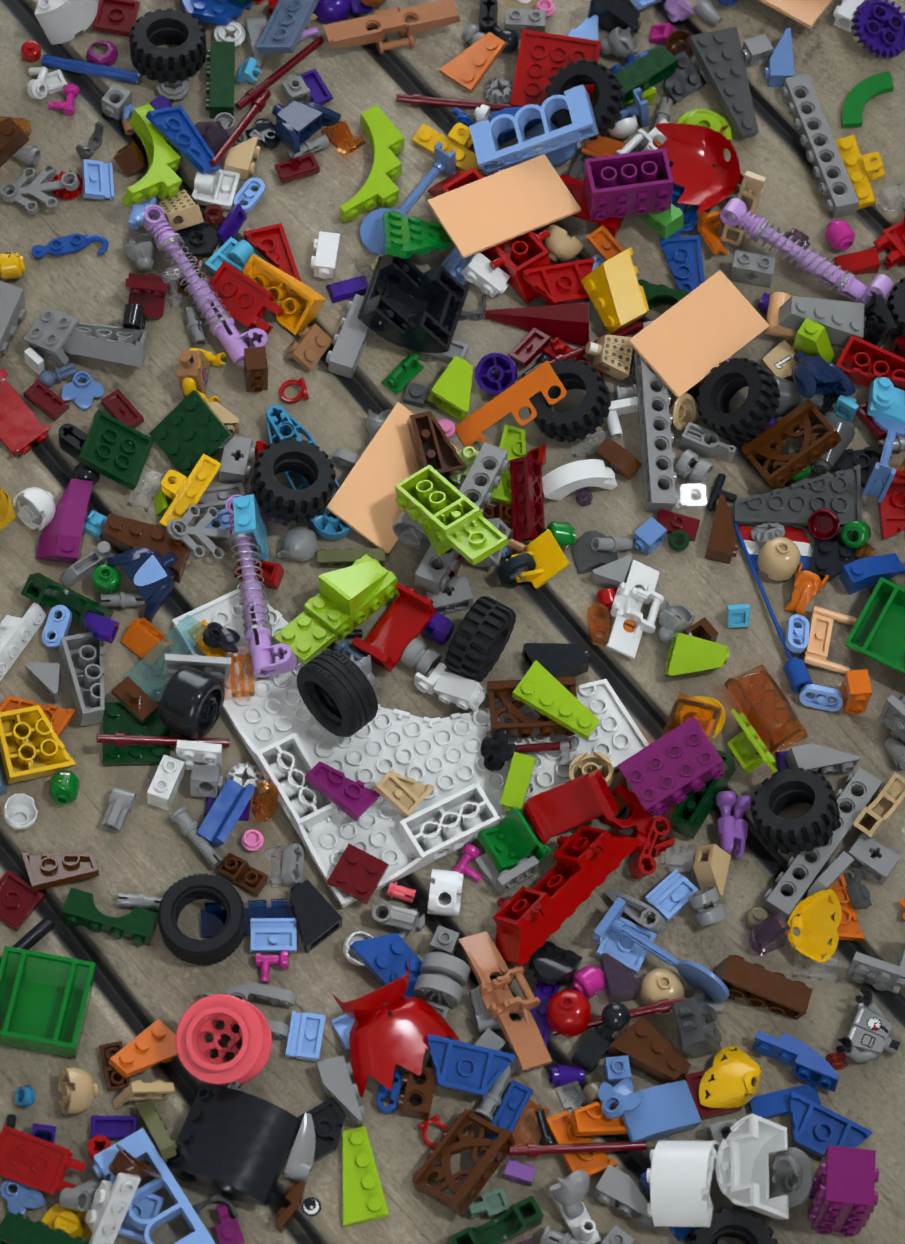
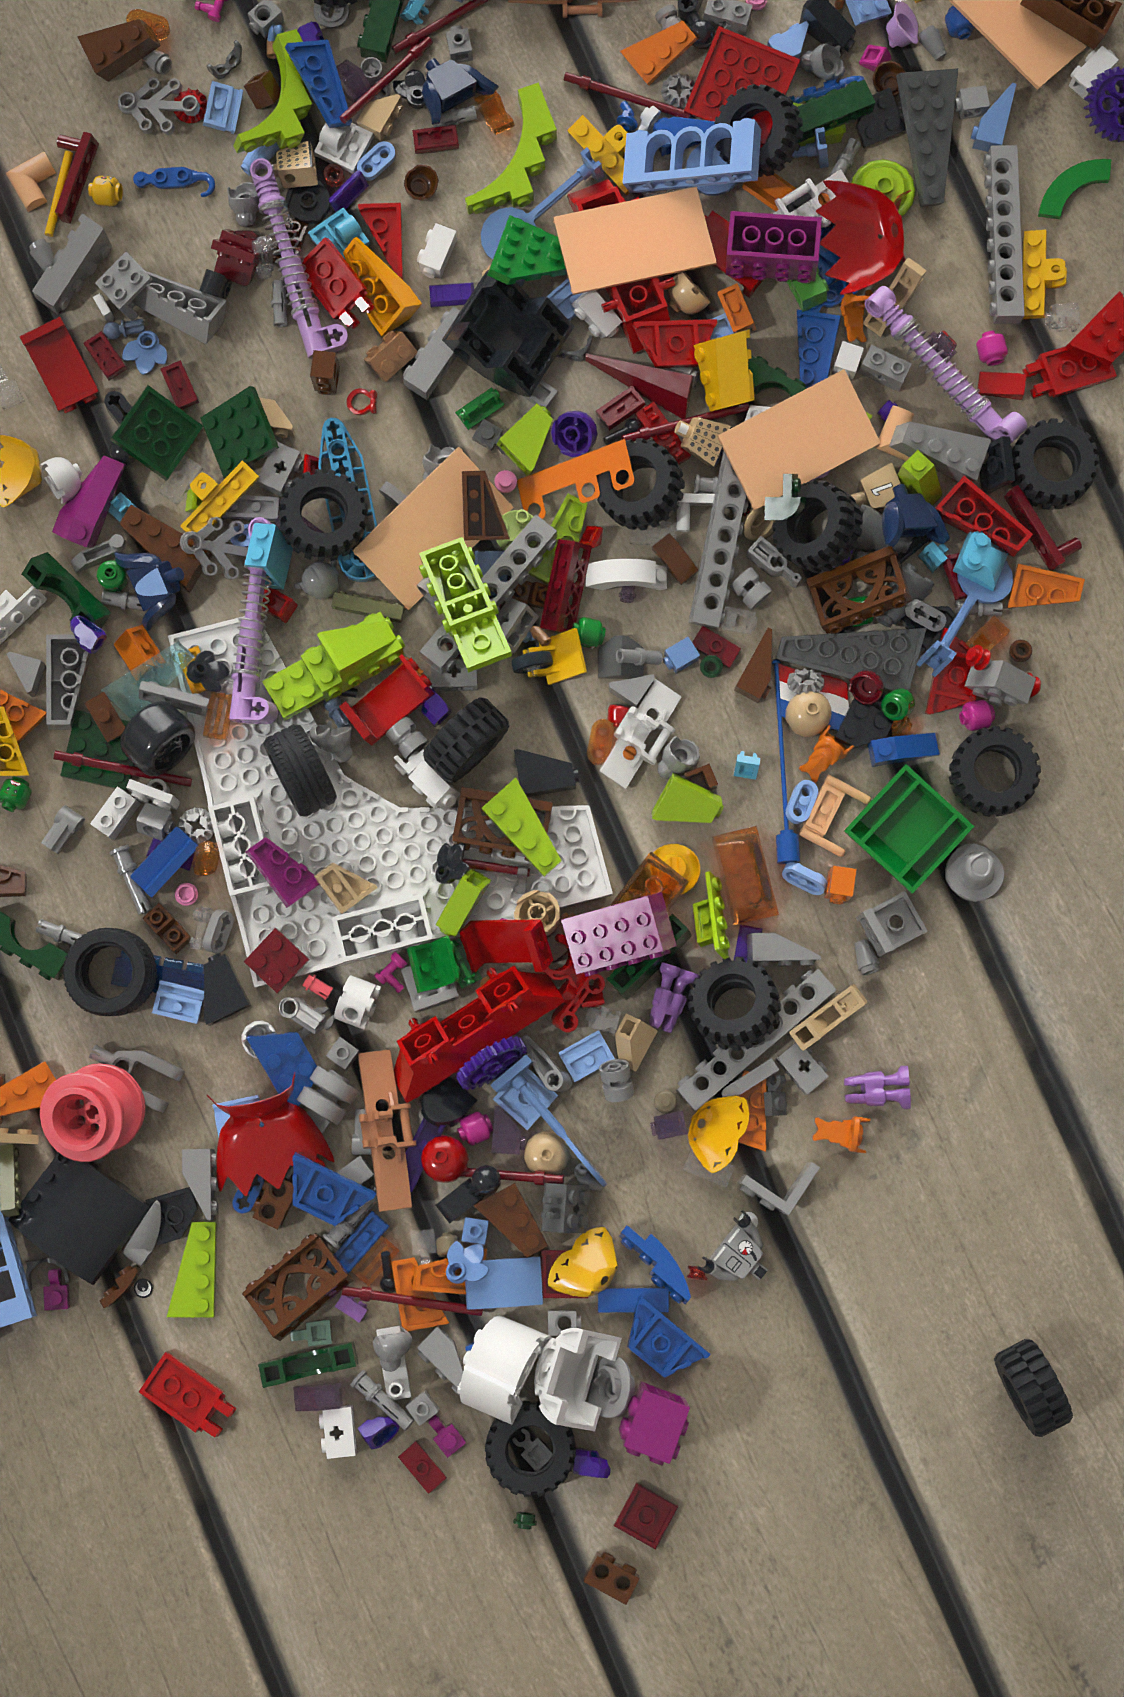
camera: 20 degrees right, 20 degrees up
(57, 626) = (51, 617): light blue plate -> none
(195, 369) = (262, 359): torso -> none
(265, 960) = (164, 1026): dark pink piece -> none
(296, 203) = (421, 182): none -> reddish brown hair
(305, 1036) = (182, 1115): light blue plate -> none
(319, 92) = (482, 44): dark purple tile -> none
(424, 1126) = (272, 1235): red piece -> none
(562, 1075) = (424, 1219): dark purple cone -> none
(578, 167) = (734, 204): dark grey plate -> none
(588, 911) = (491, 1062): none -> dark purple gear
(624, 128) = (798, 167): white hair -> none
(708, 385) = (790, 504): none -> brick
(717, 262) = (848, 359): none -> white brick
(717, 490) = (769, 620): black piece -> none
(763, 987) = (644, 1179): reddish brown wedge -> none
(857, 449) = (927, 612): none -> light grey beam

